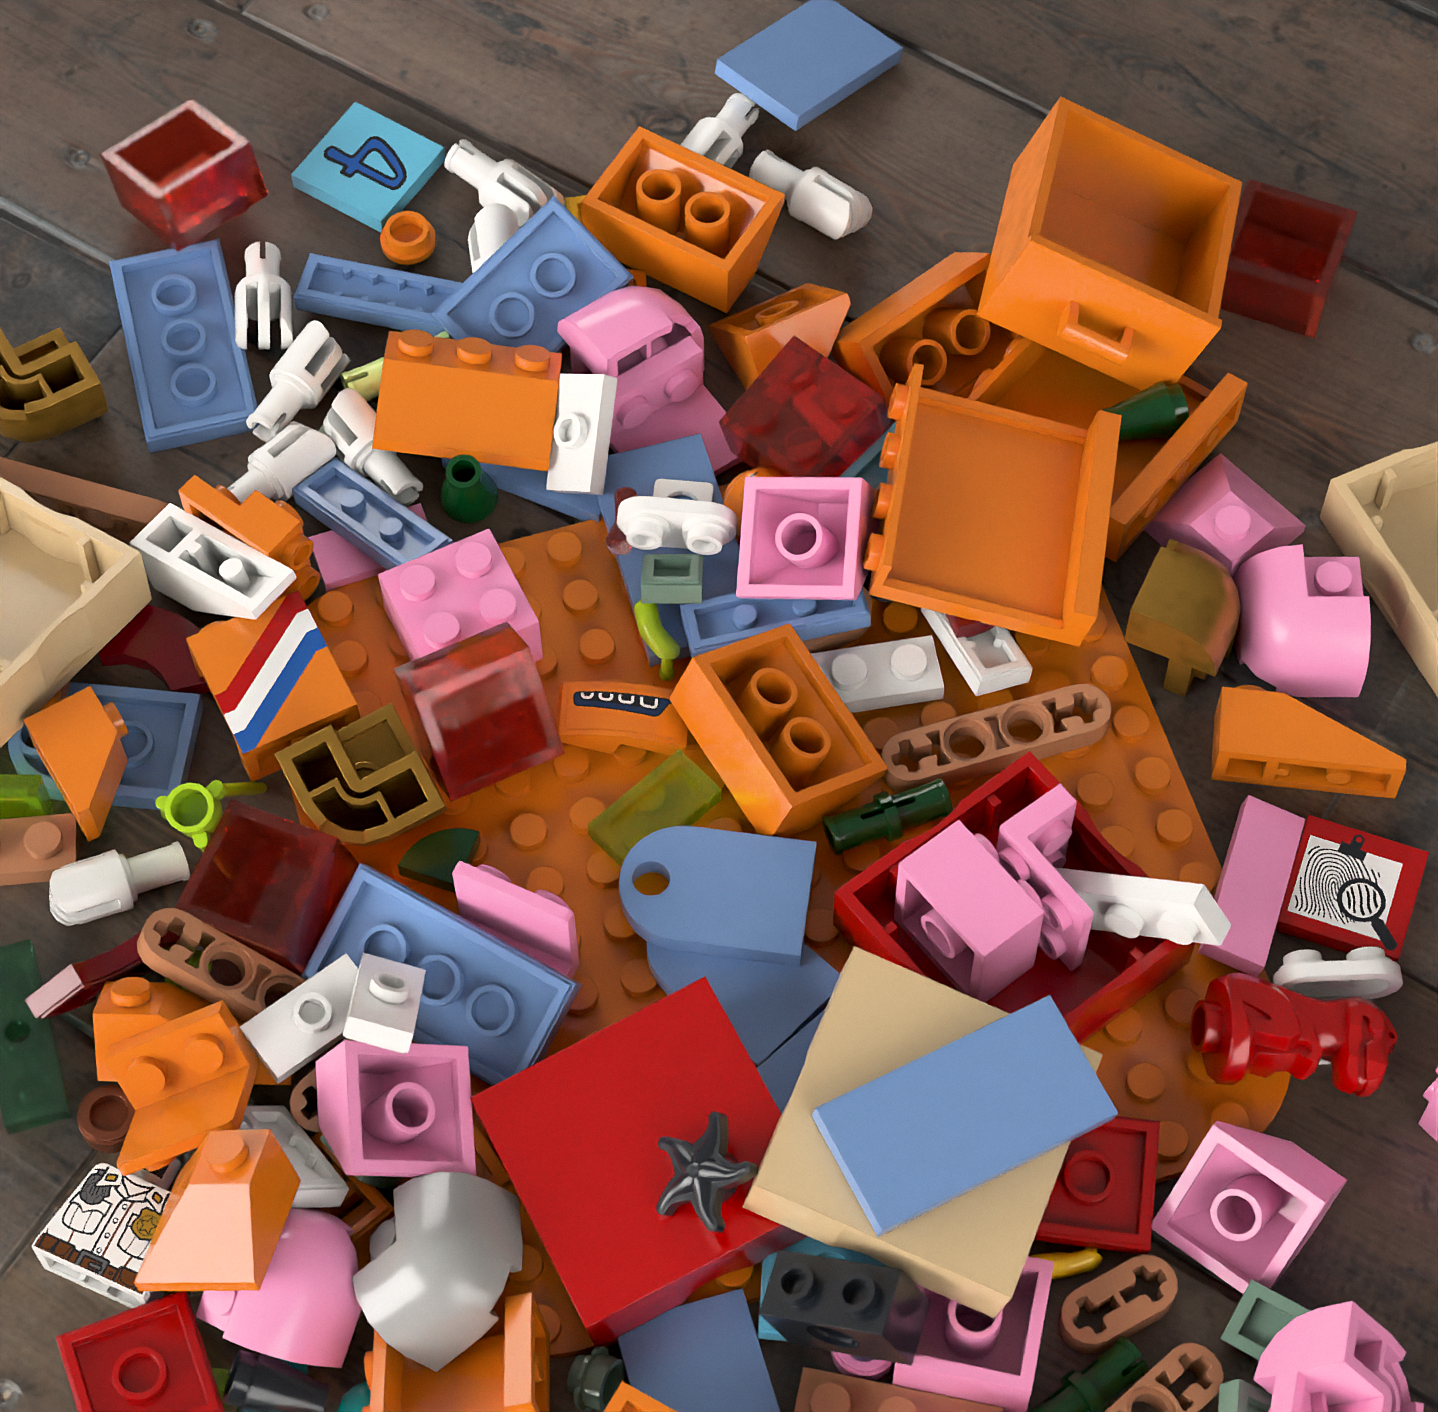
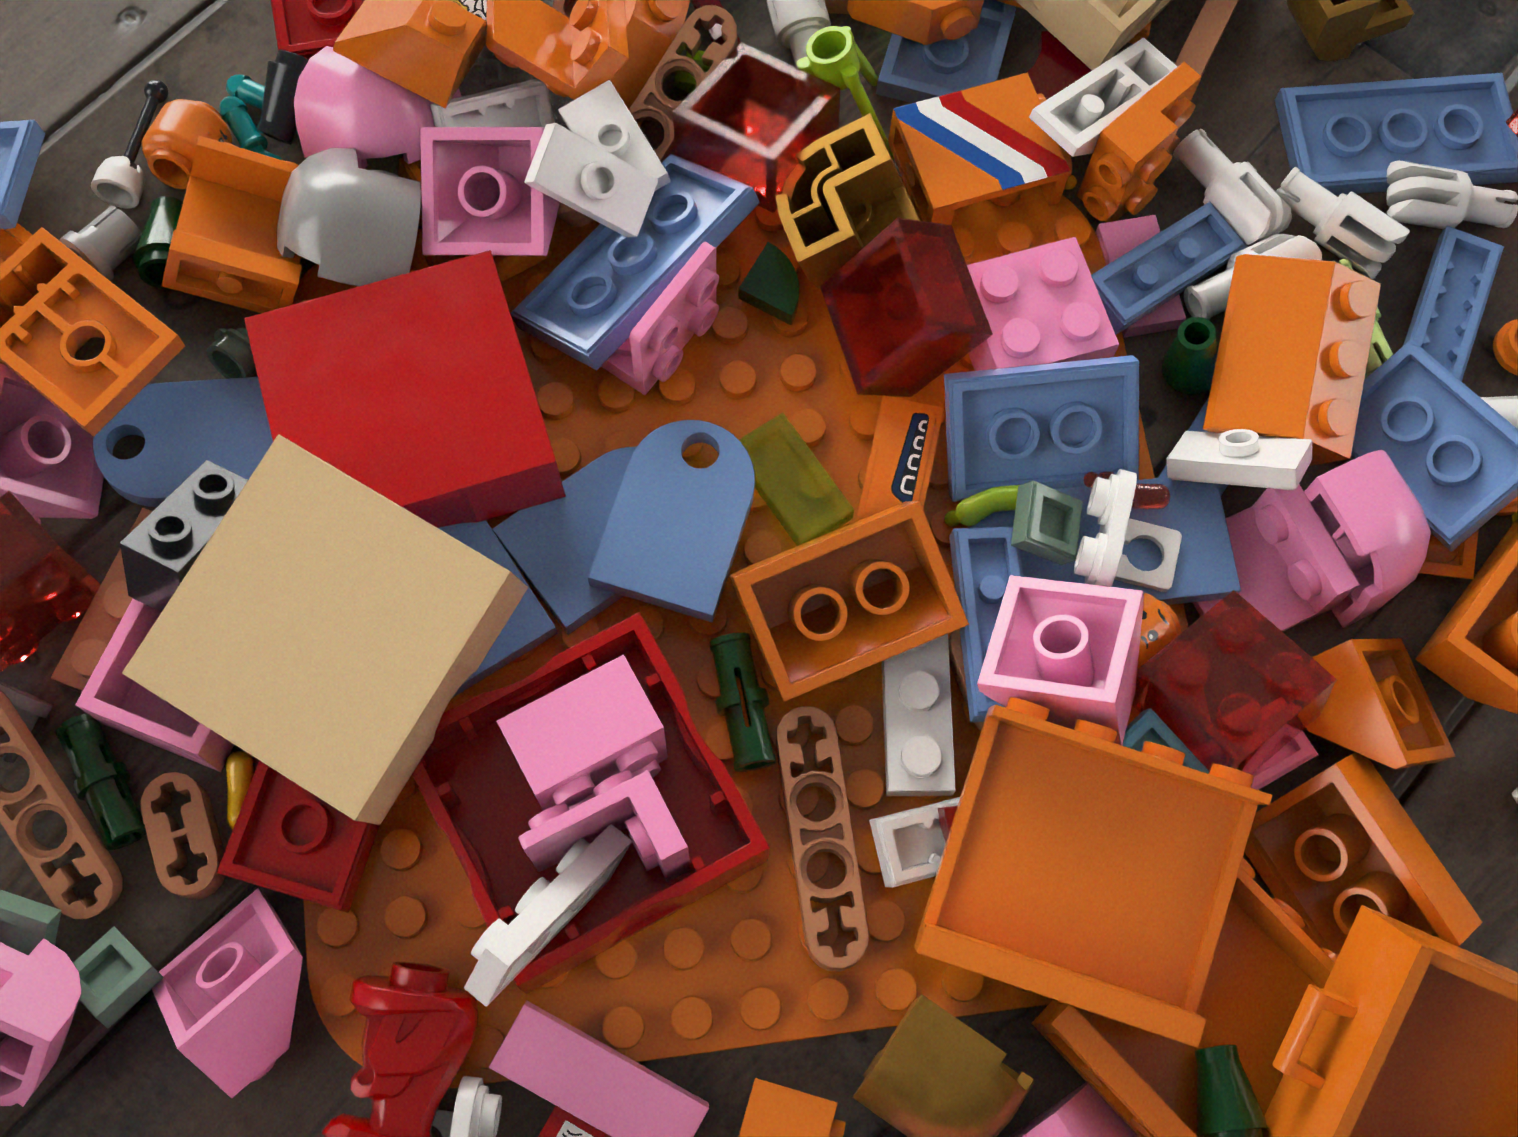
camera: 95 degrees right, 10 degrees up
(576, 594) = (1041, 424): none -> medium blue tile
(704, 1173) = (337, 420): black animal -> none
(963, 1115) = (304, 654): medium blue tile -> none

